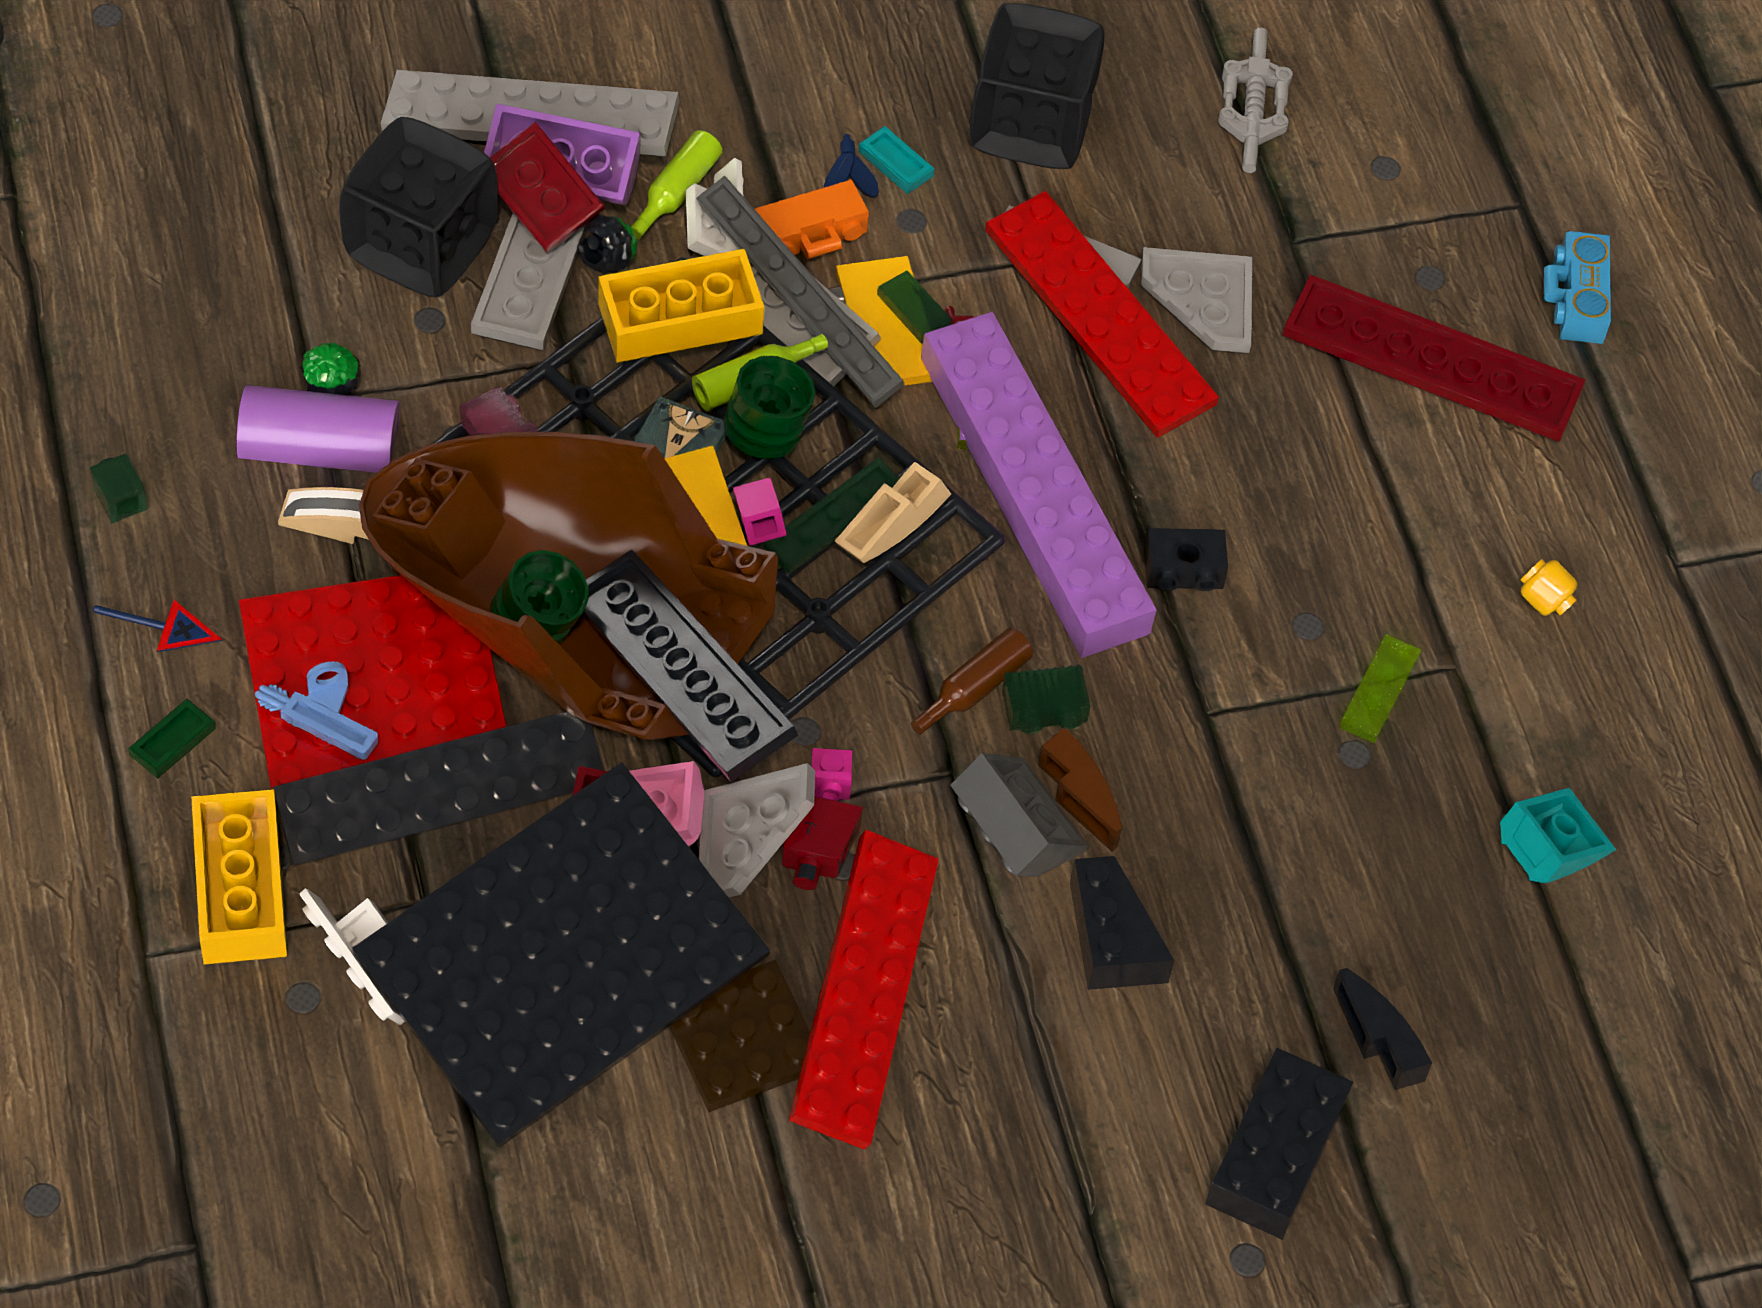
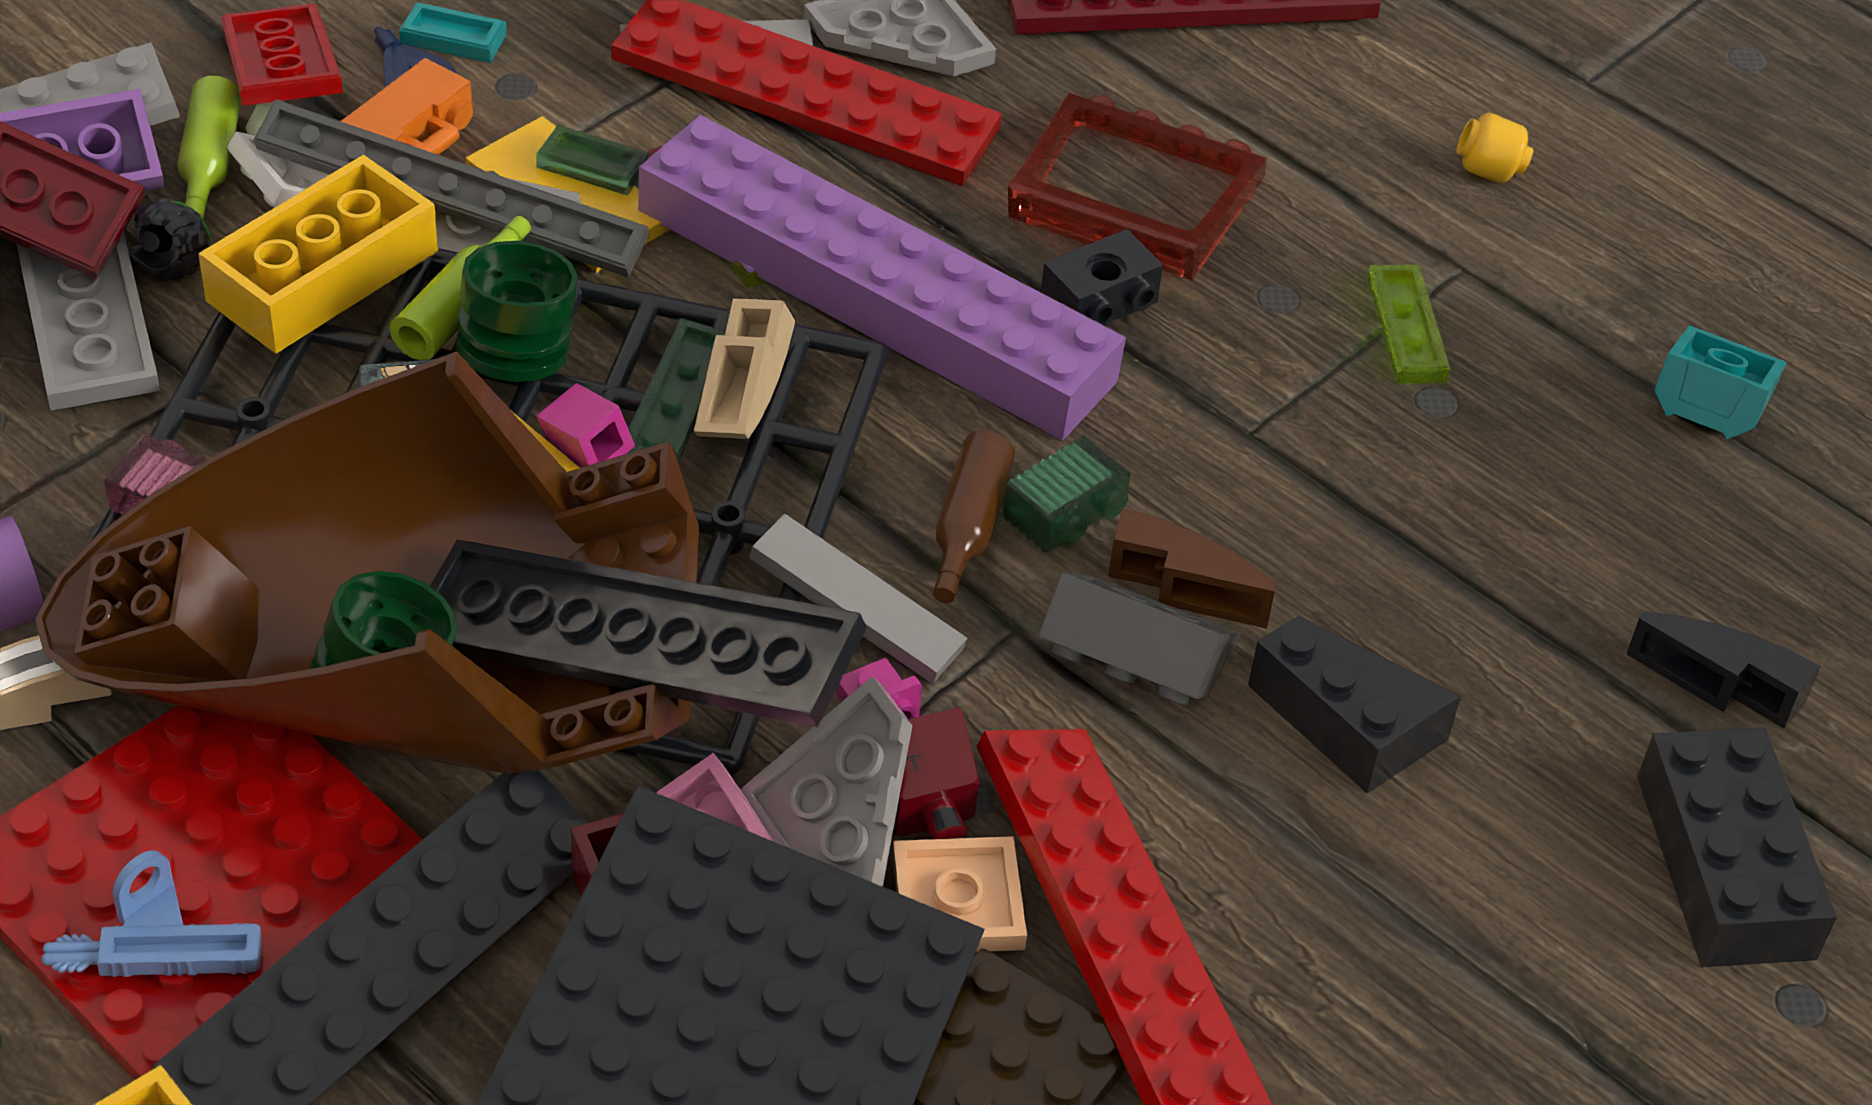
camera: 30 degrees left, 10 degrees down
(764, 132) = (280, 54): none -> red tile
(790, 919) = (969, 881): none -> light nougat plate
(861, 703) = (841, 583): none -> light grey tile
(1261, 562) = (1091, 220): none -> clear red windscreen

